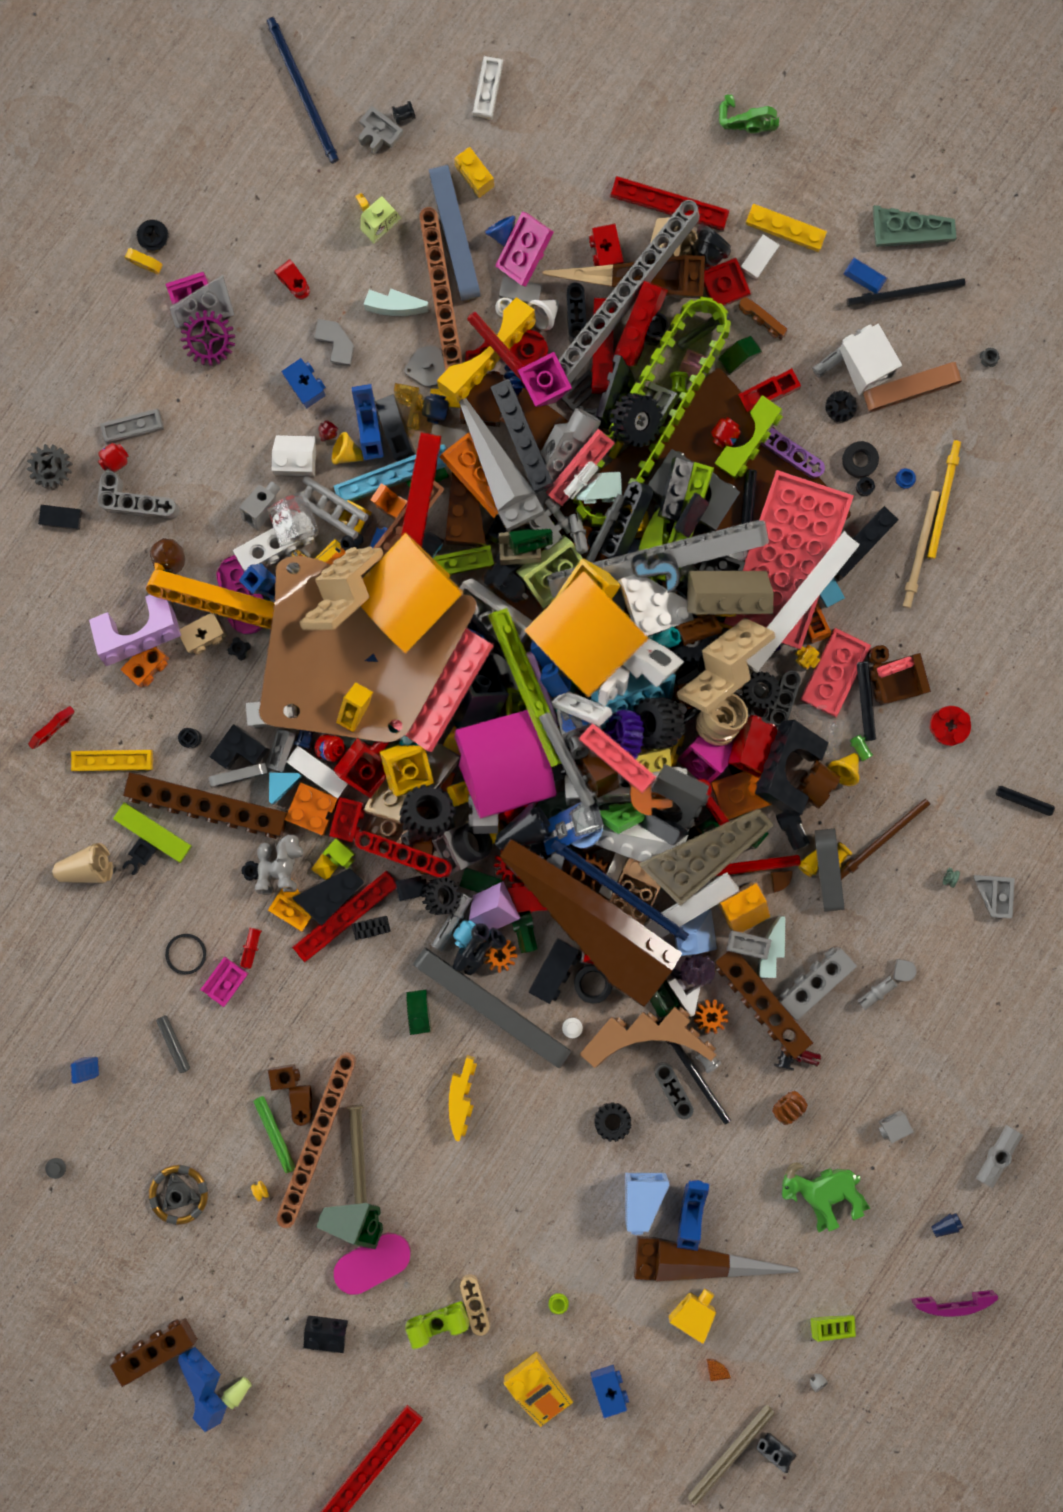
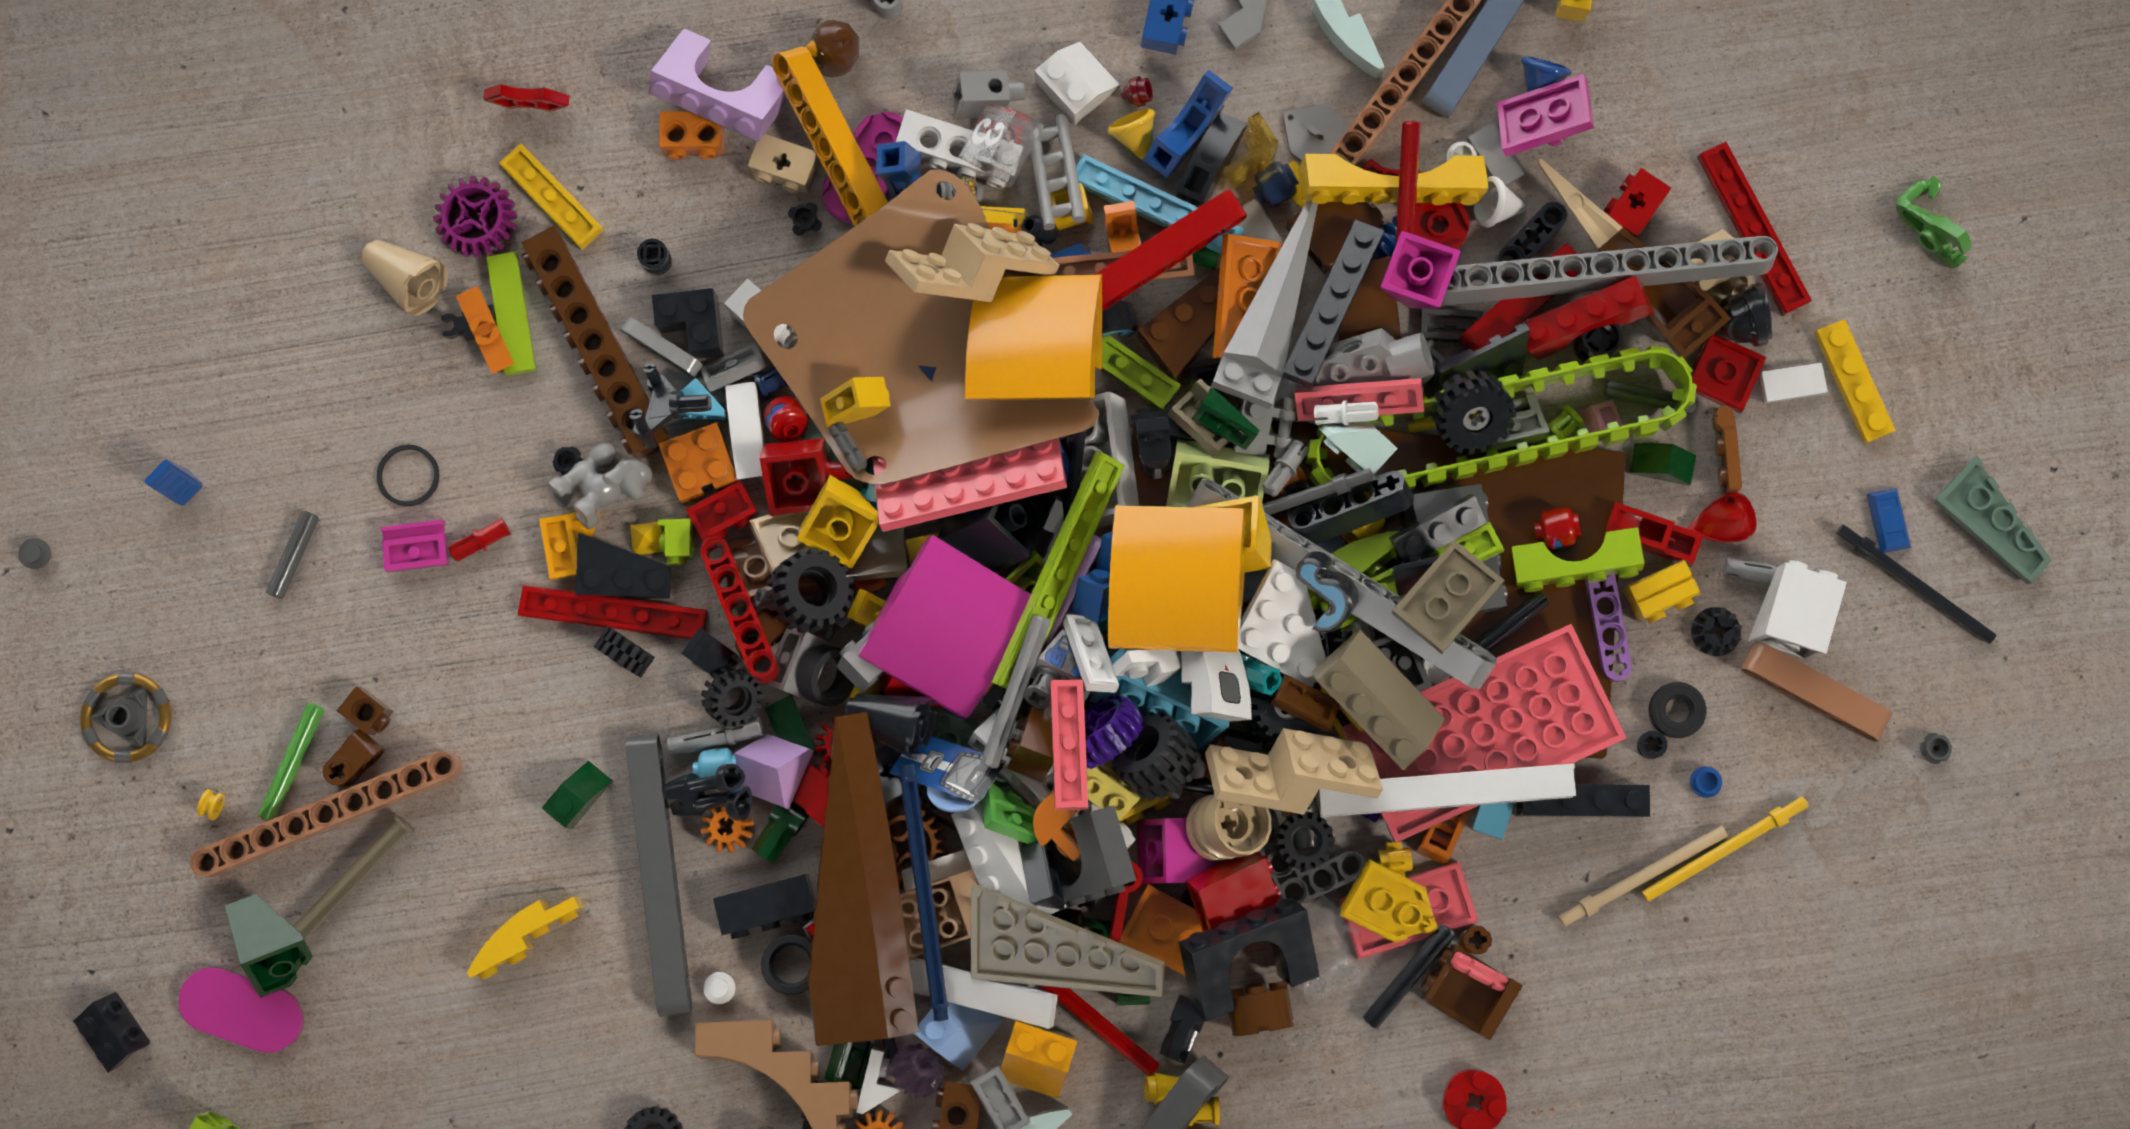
camera: 45 degrees right, 5 degrees down
(87, 814) = (466, 225): none -> magenta gear
(149, 852) = (484, 330): none -> orange piece
(270, 800) = (664, 406): none -> black axle
(373, 730) = (848, 446): none -> dark grey axle
(714, 515) = (1447, 596): none -> dark tan plate
(781, 880) = (1111, 1071): reddish brown tile -> none
(794, 350) = (1726, 519): none -> red piece
(799, 413) = (1662, 591): none -> yellow brick
(825, 679) = (1388, 904): none -> yellow tile
(847, 768) = (1309, 1027): yellow hat -> none
(861, 747) = (1350, 1020): bright green pin -> none

